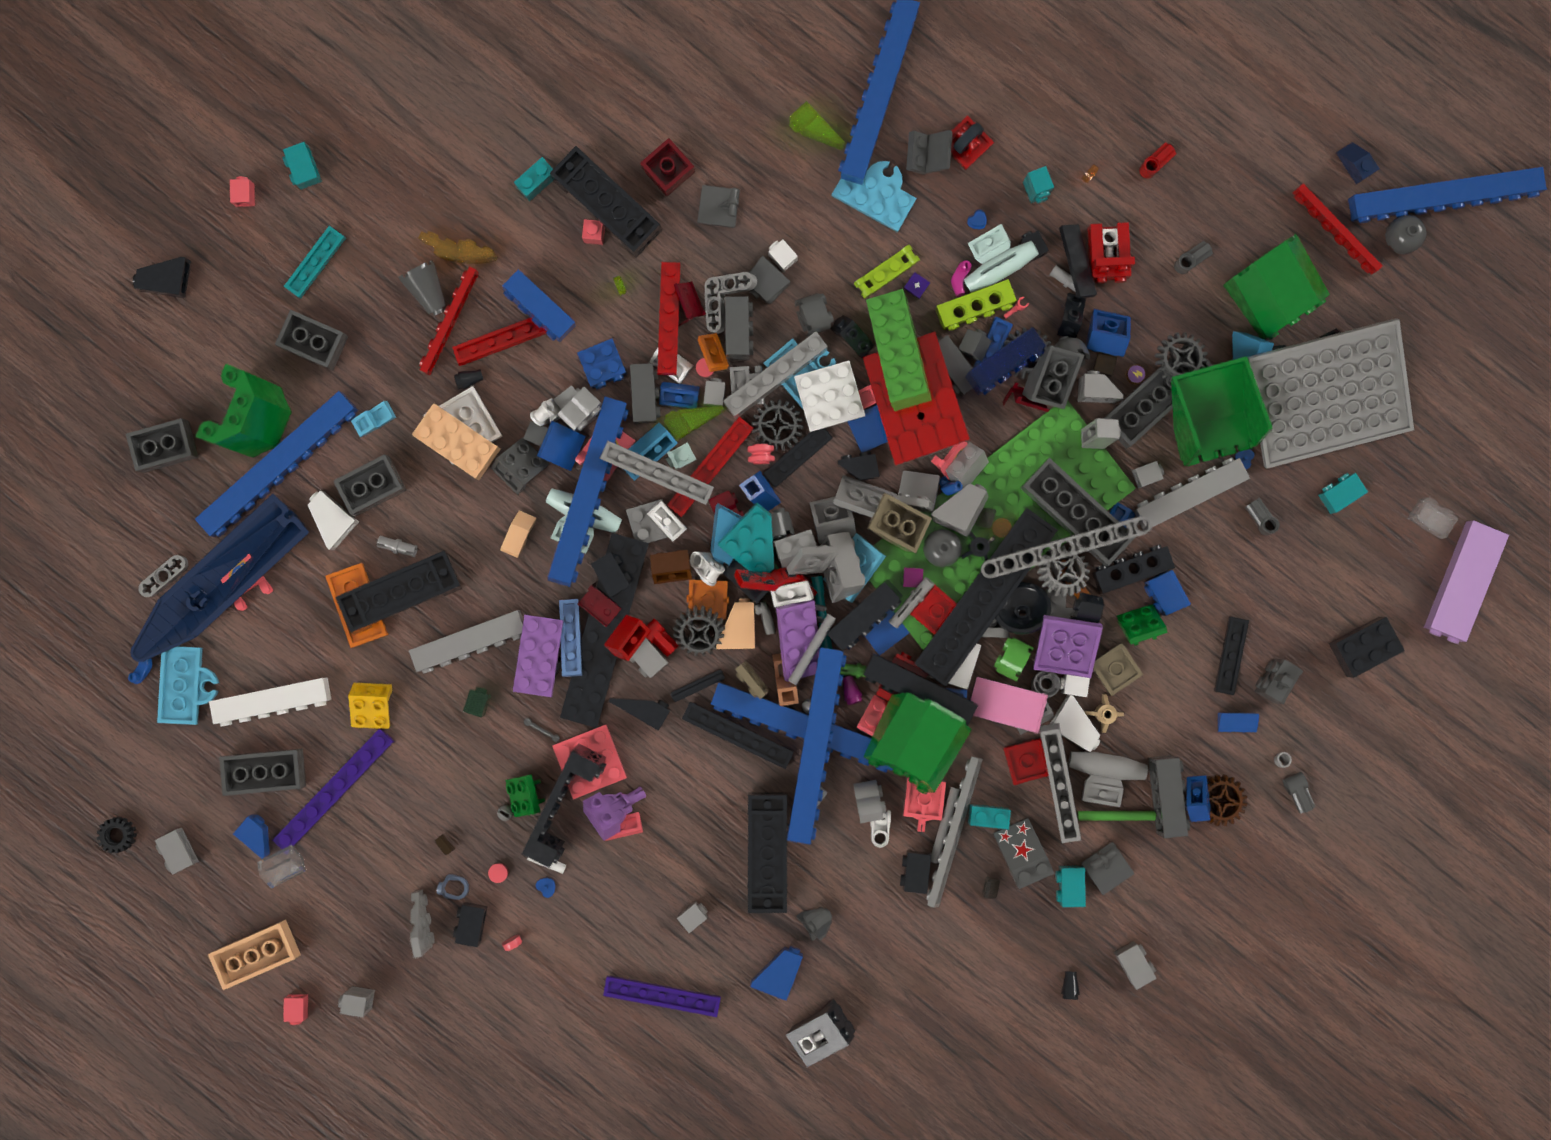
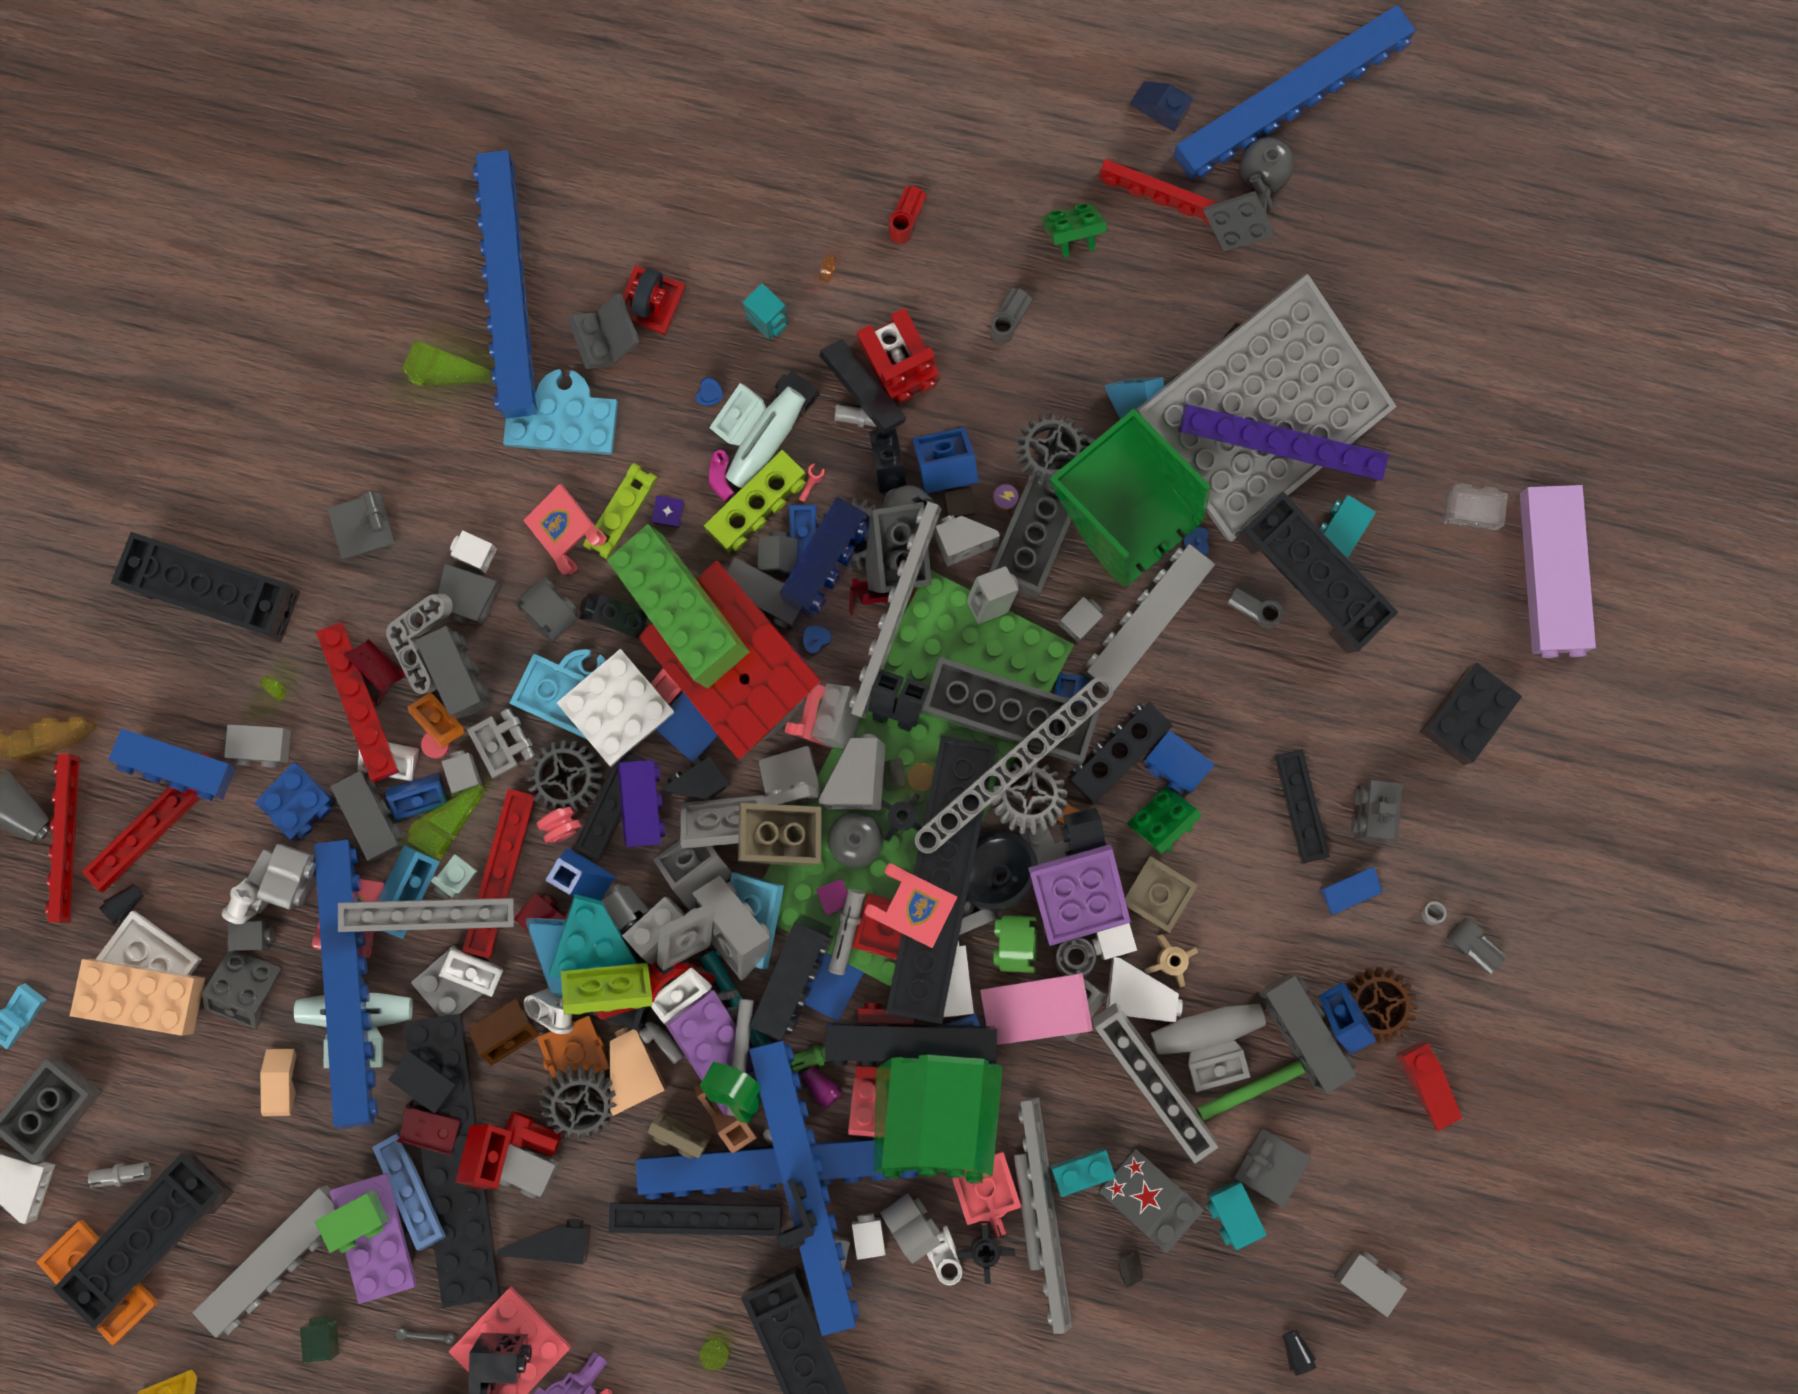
camera: 25 degrees left, 5 degrees down
(531, 640) = (352, 1221): none -> bright green brick
(534, 179) = (99, 600): teal brick -> none
(561, 445) = (284, 937): blue tile -> none
(593, 232) = (207, 634): coral brick -> none
(595, 317) = (257, 744): none -> light grey brick
(667, 167) = (269, 505): dark red brick -> none
(697, 685) = (611, 1175): black axle -> none
(712, 822) = (714, 1354): none -> clear neon green tile
(751, 569) = (606, 988): none -> lime plate
(775, 375) = (530, 712): light grey brick -> none
(799, 665) = (732, 1088): none -> green brick
(799, 773) = (795, 1236): none -> black bracket
(818, 463) = (640, 803): none -> dark purple brick
(839, 794) = (868, 1236): none -> white brick
(846, 263) = (559, 525): none -> coral flag
(907, 842) = (989, 1259): none -> black brick
(916, 872) = (1019, 1293): black brick -> none
(948, 487) = (827, 755): blue arm -> none
(962, 608) = (916, 909): none -> coral flag
(973, 409) = (815, 638): none -> blue piece
(1010, 480) = (902, 707): none -> black hips
(1026, 761) = (1096, 1074): red tile -> none
(1040, 408) = (899, 599): none -> light grey plate
(1229, 863) = (1430, 1084): none -> red slope
(1262, 217) = (1074, 224): none -> green plate
(1278, 288) = (1135, 304): green windscreen -> none
(1313, 512) = (1317, 571): none -> black plate
(1330, 420) = (1283, 442): none -> dark purple plate
(1374, 263) = (1243, 217): none -> dark grey plate

